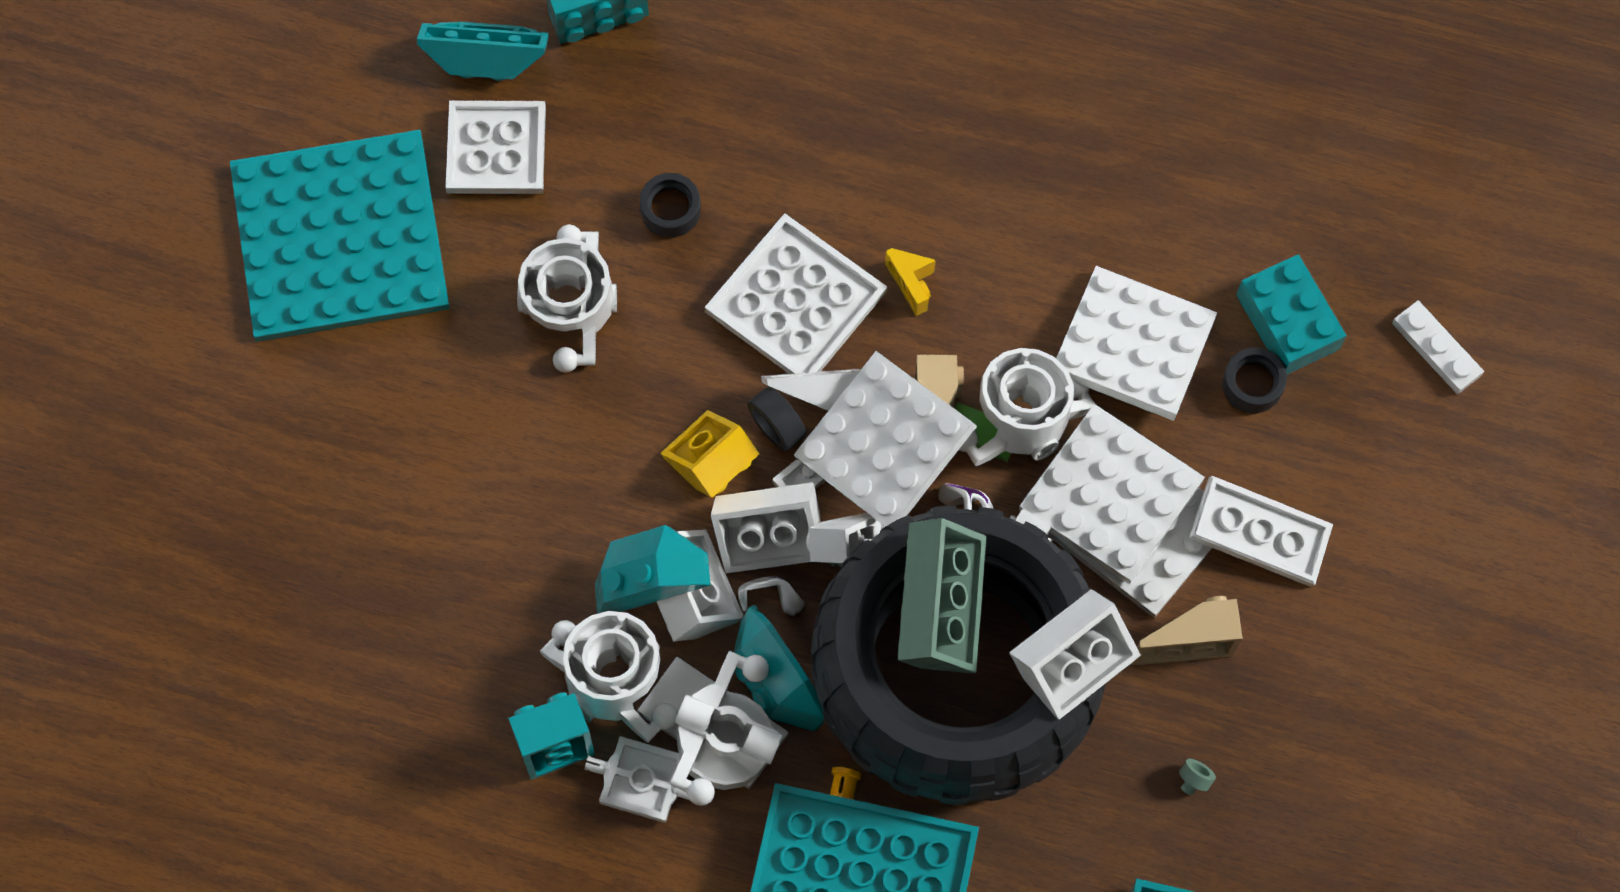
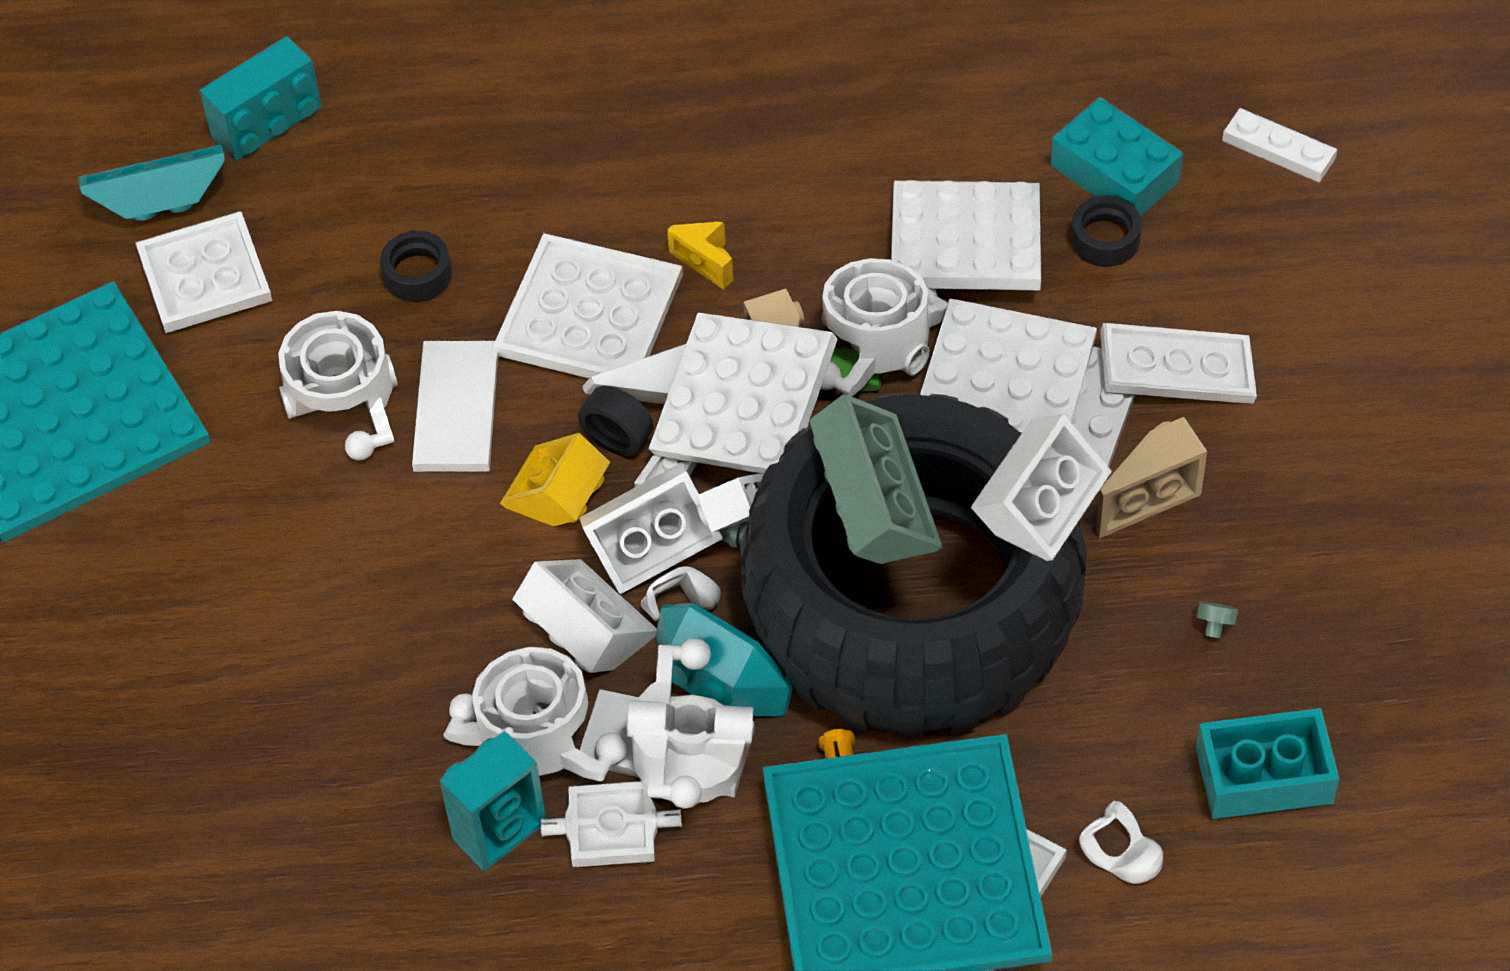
camera: 15 degrees left, 15 degrees down
(649, 569) = (537, 599): teal wedge -> none
(656, 349) = (455, 406): none -> white tile

